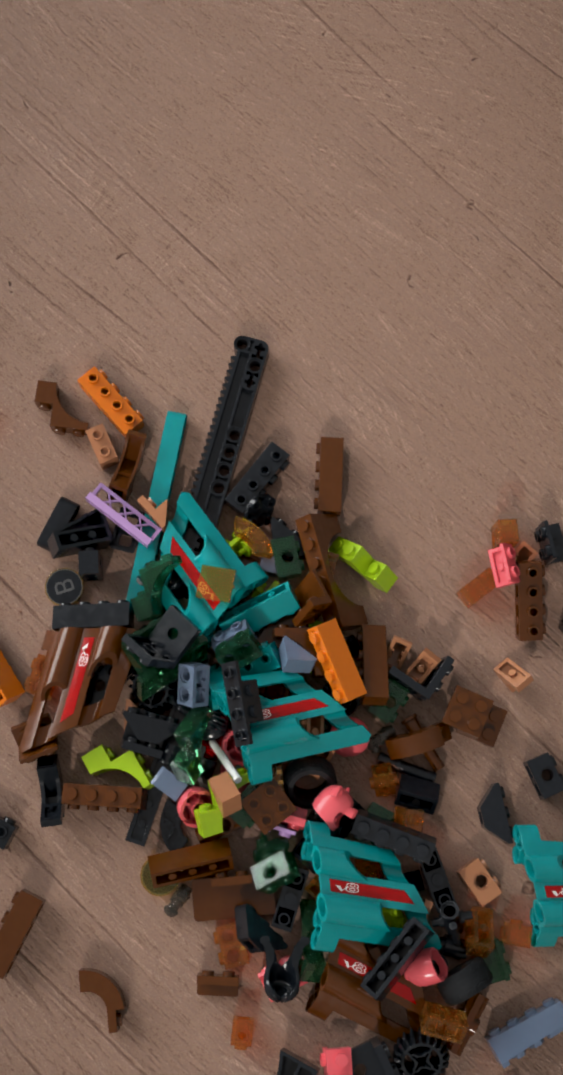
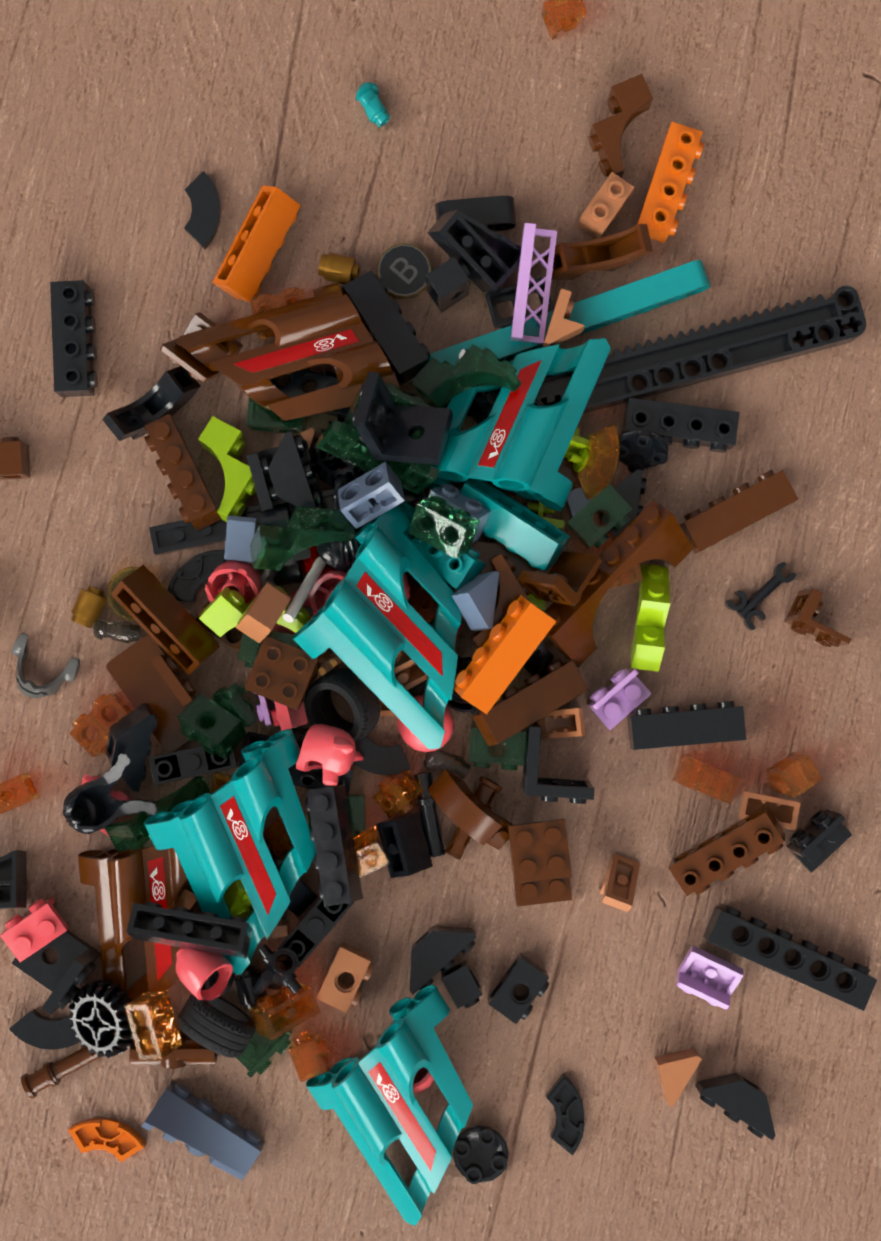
camera: 65 degrees right, 10 degrees up
(38, 625) = (338, 268): none -> pearl gold brick
(103, 725) = (266, 420): none -> clear green brick
(151, 909) = (88, 606): none -> pearl gold brick
(180, 980) = (28, 687): none -> dark grey helmet
(216, 583) = (511, 448): clear orange piece -> none
(217, 984) = (50, 734): reddish brown bracket -> none
(242, 702) = (379, 567): black bracket -> none
(356, 776) = (381, 759): none -> black tile
(389, 505) = (746, 608): none -> black bar
(400, 611) = (619, 698): none -> lavender bracket
(409, 471) = (799, 616): none -> reddish brown bracket
(423, 665) = (564, 764): nougat slope -> none
(441, 581) = (686, 727): none -> black brick
(504, 565) = (752, 796): coral bracket -> none
(523, 809) = (462, 985): none -> black brick

